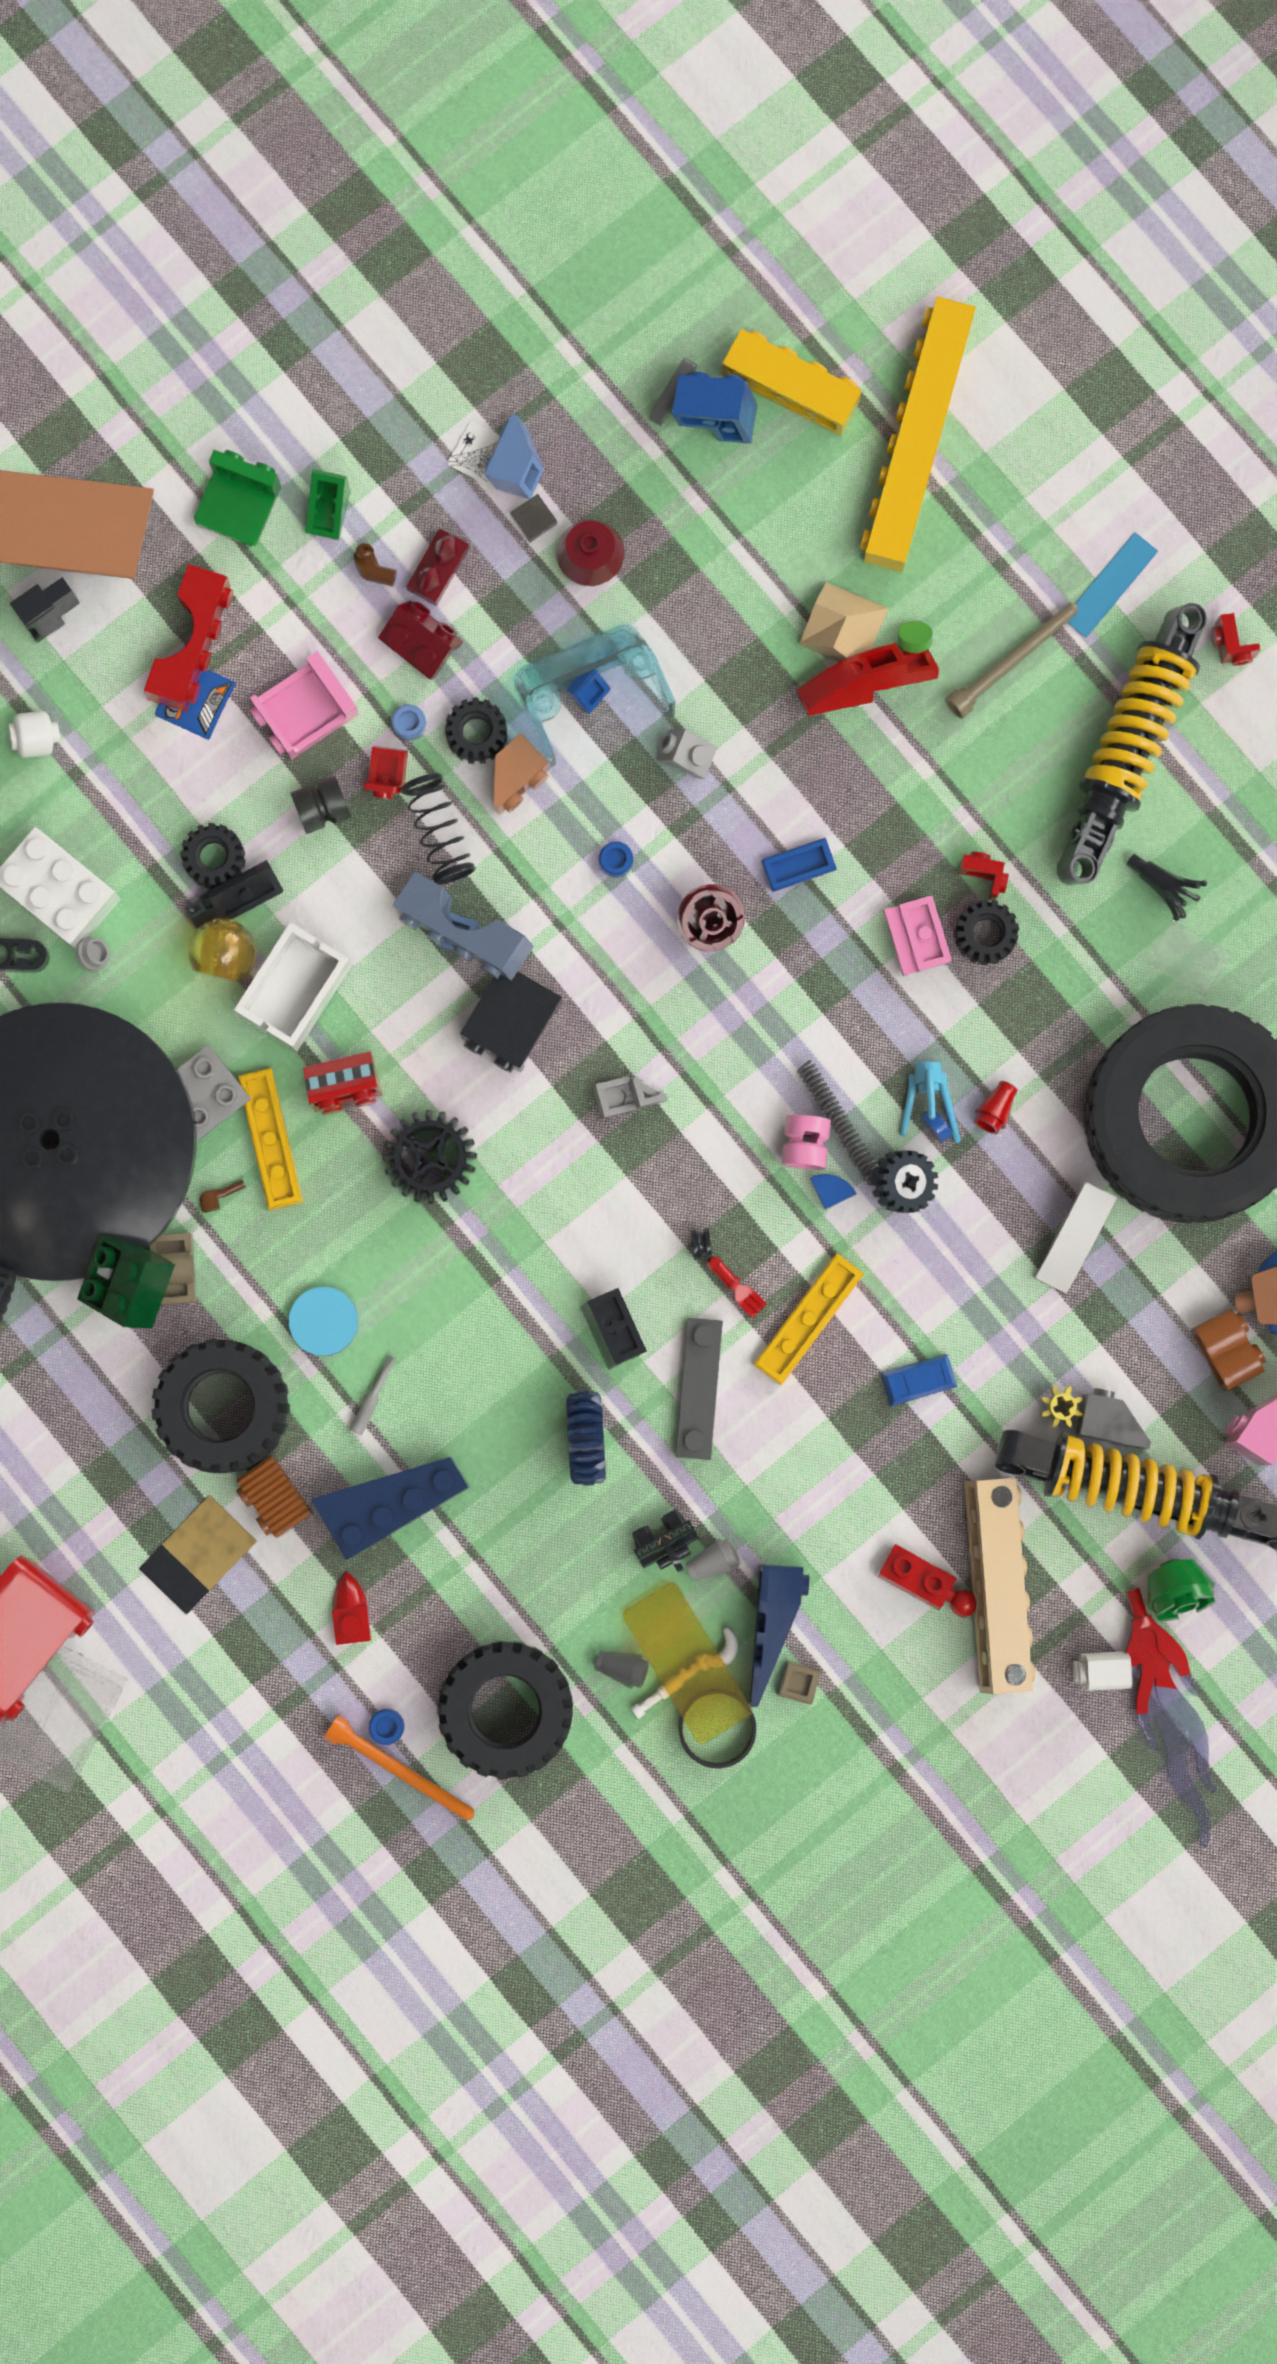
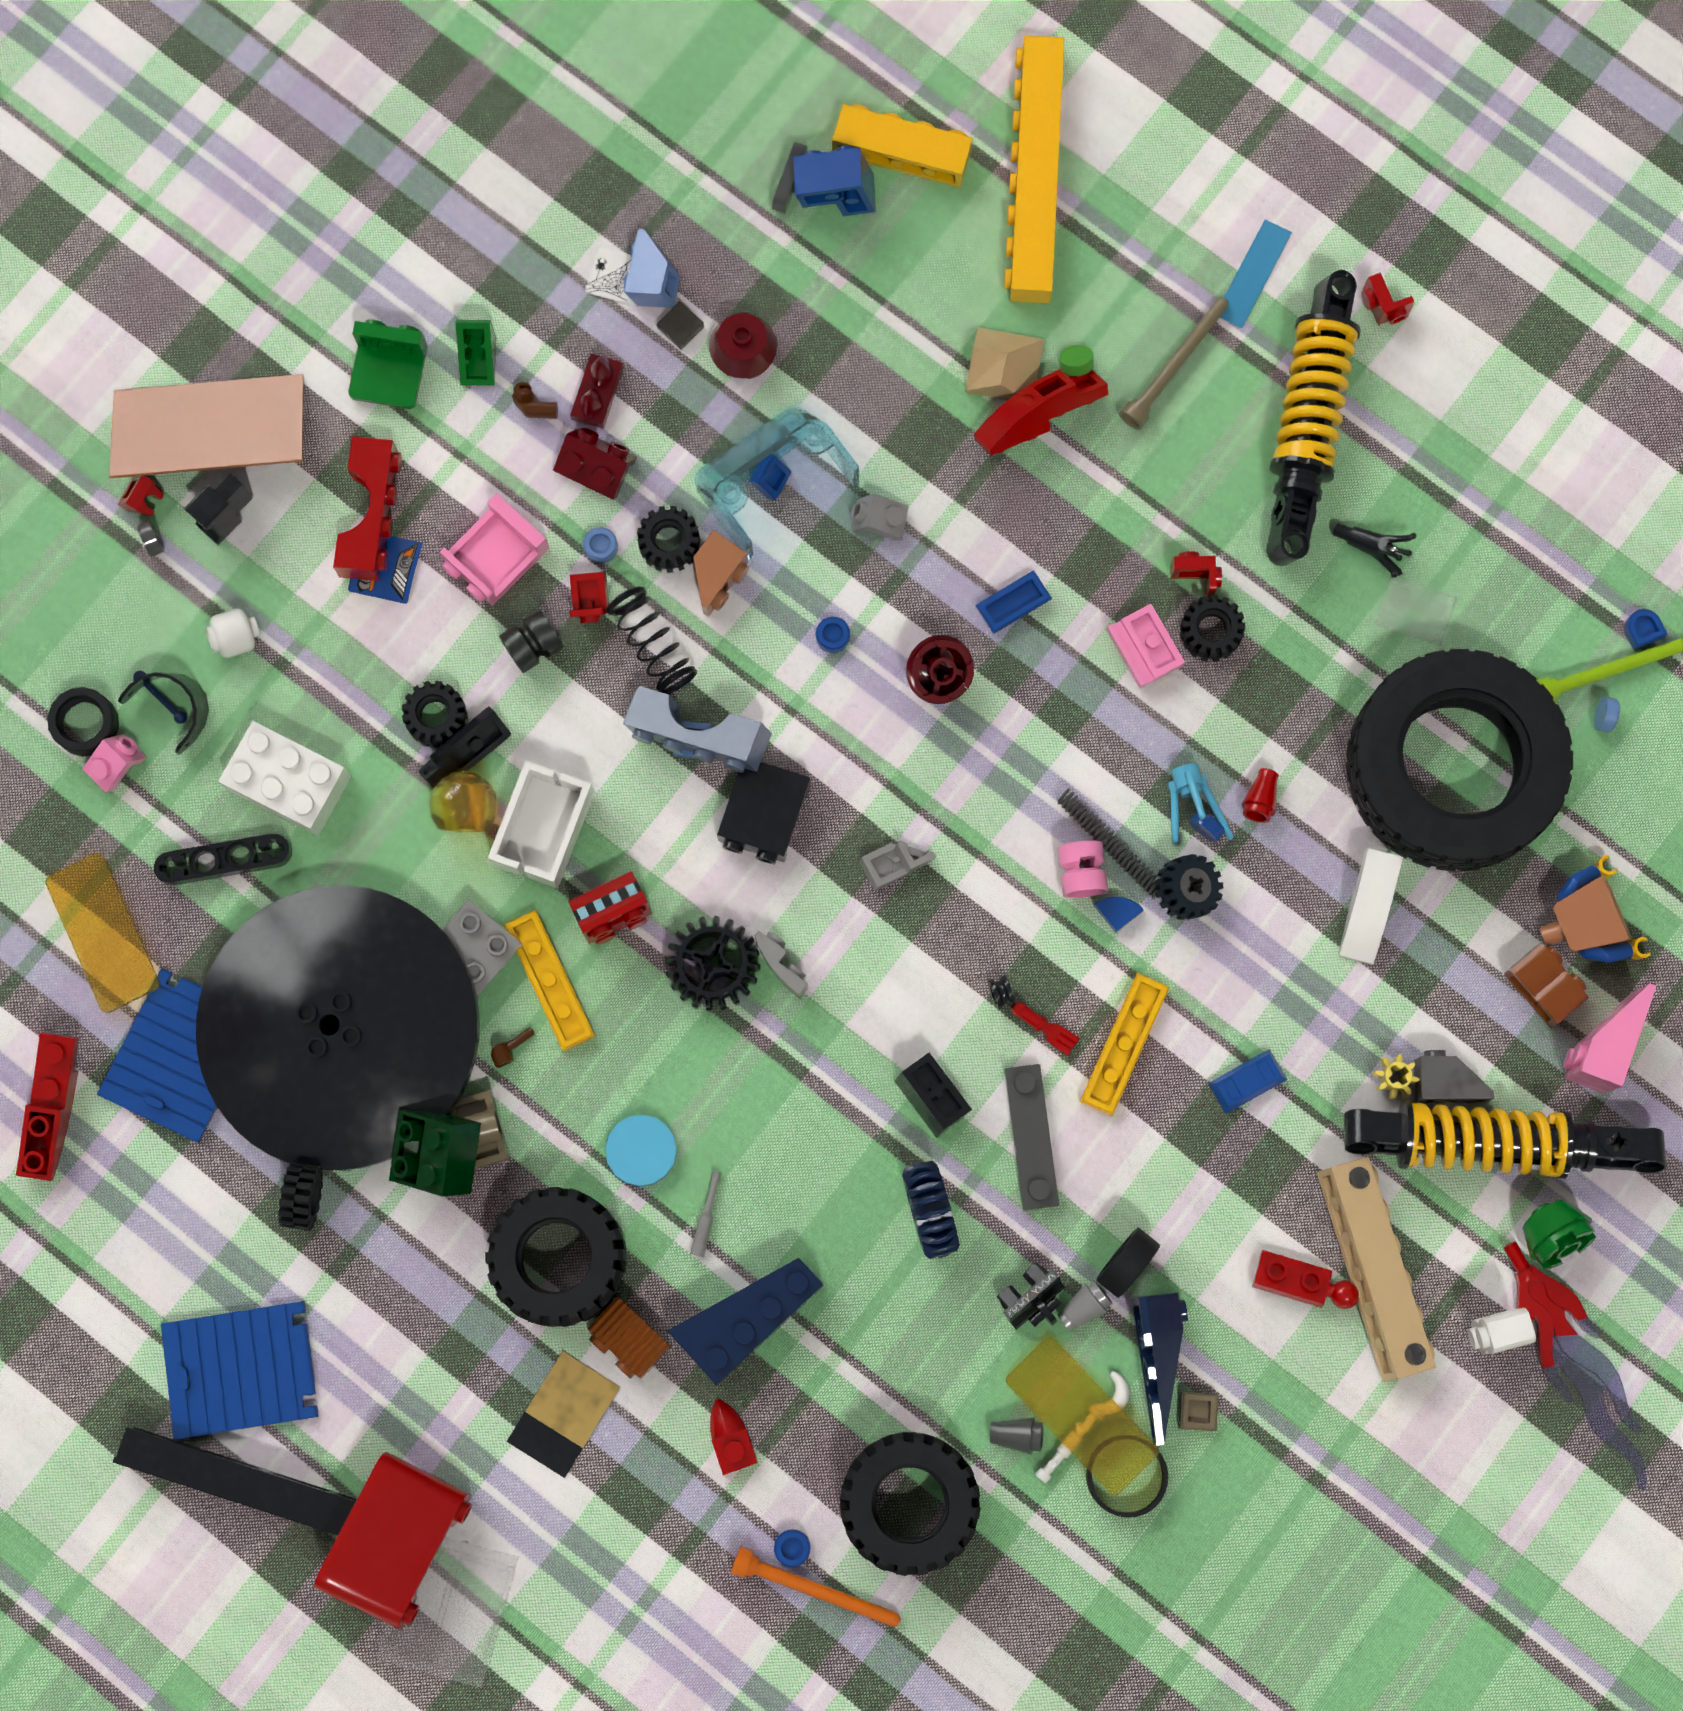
camera: 10 degrees left, 5 degrees down
(92, 953) = (334, 834): light grey plate -> none
(489, 1156) = (774, 955): none -> light grey slope
(763, 1528) = (1128, 1262): none -> black tyre

